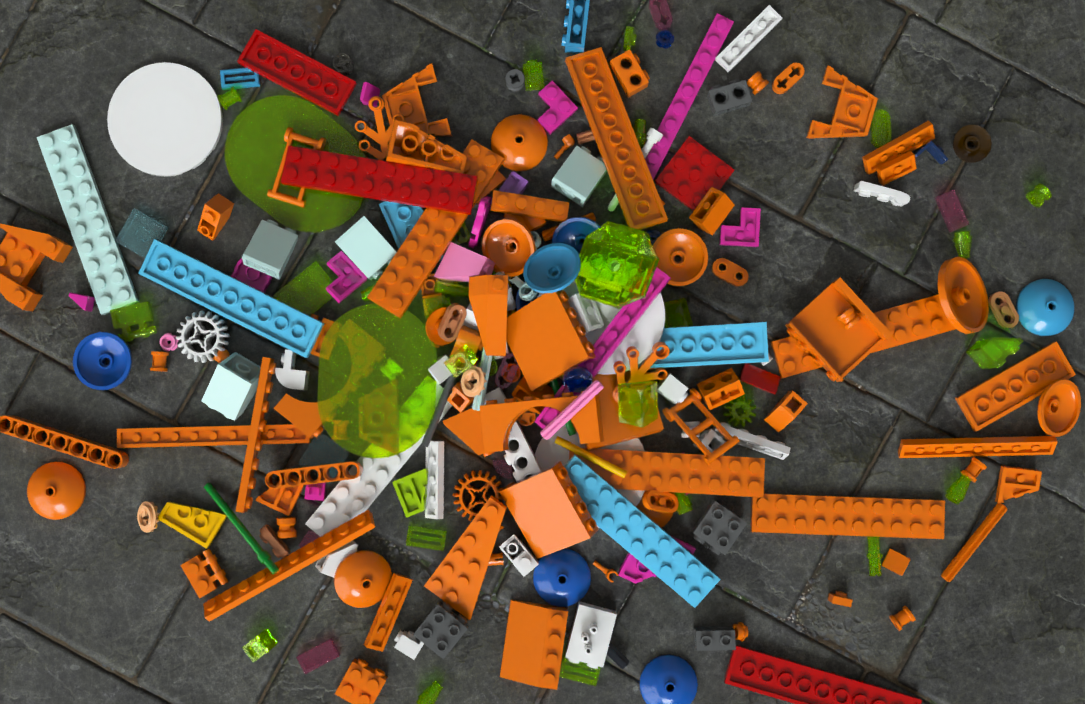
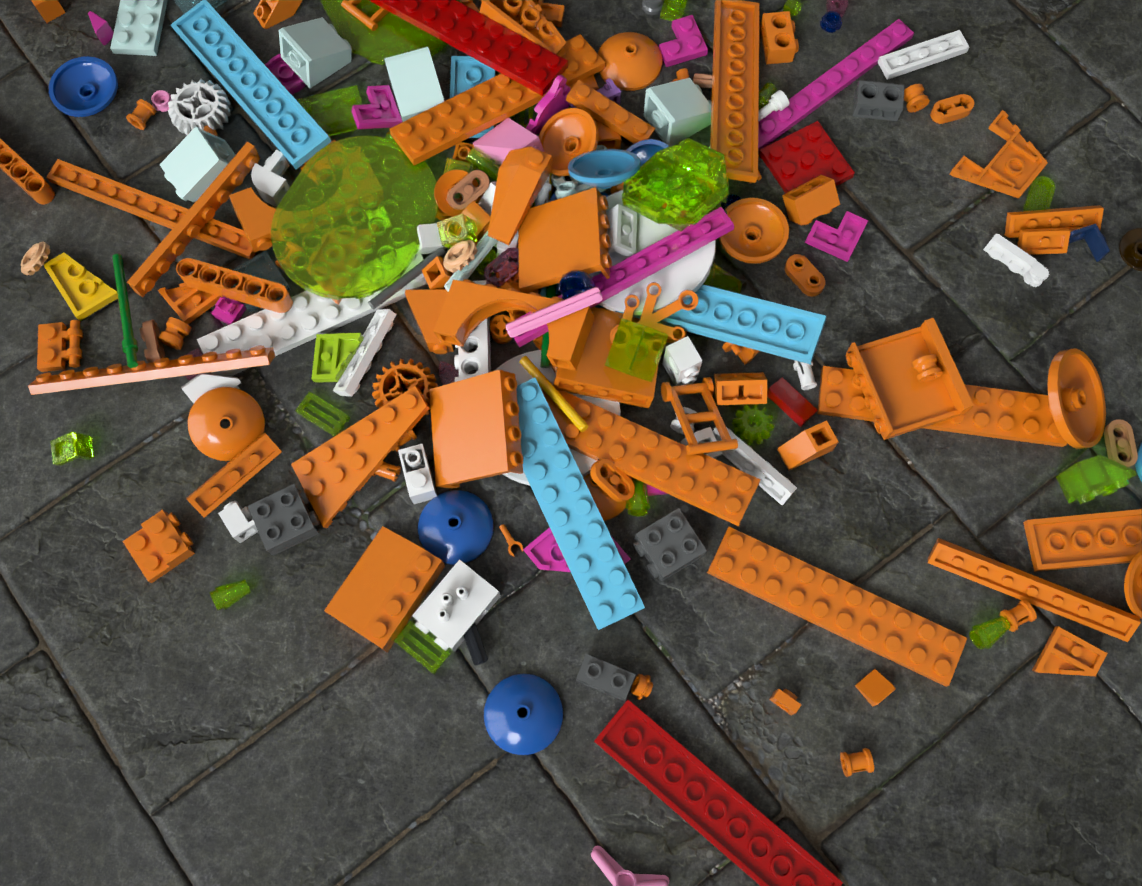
camera: 25 degrees right, 15 degrees down
(133, 315) = (142, 62): clear neon green plate -> none
(318, 656) = (129, 491): clear pink tile -> none
(874, 556) = (850, 668): clear neon green pin -> none
(951, 211) = (1093, 312): clear pink plate -> none
(963, 243) = (1096, 348): clear neon green cone -> none
(974, 542) = (986, 708): orange axle -> none

